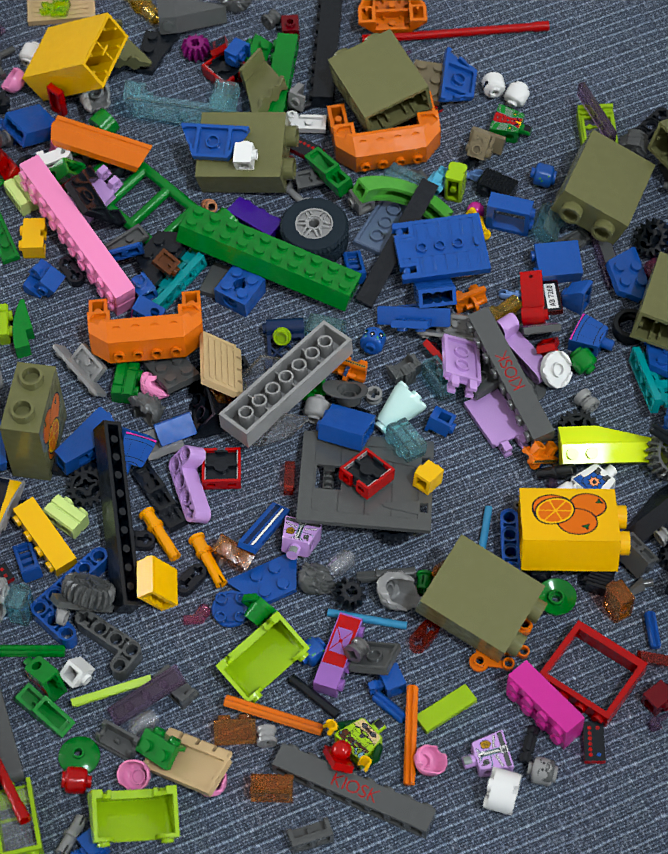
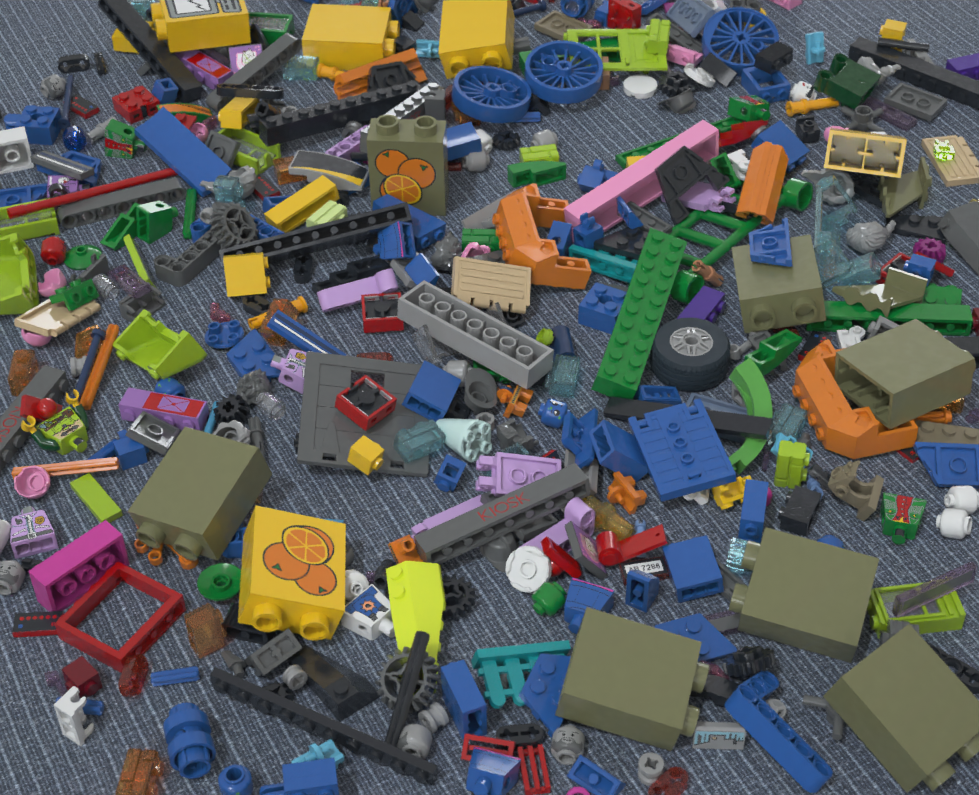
camera: 85 degrees right, 15 degrees down
(57, 100) = (818, 156): red tile -> none
(77, 672) = (159, 238): white brick -> none
(155, 526) = (315, 275): light orange pin -> none
(167, 263) = (615, 241): reddish brown bracket -> none
(176, 84) = (869, 236): none -> light grey hair
(244, 155) = (755, 265): white brick -> none
(244, 710) = (98, 336): none -> dark blue bar
(258, 609) = (215, 344): green piece -> none
(315, 697) = (113, 406): black piece -> none
(356, 650) = (156, 410): flat silver wheel -> none
(586, 401) = (489, 604): light grey wheel -> none

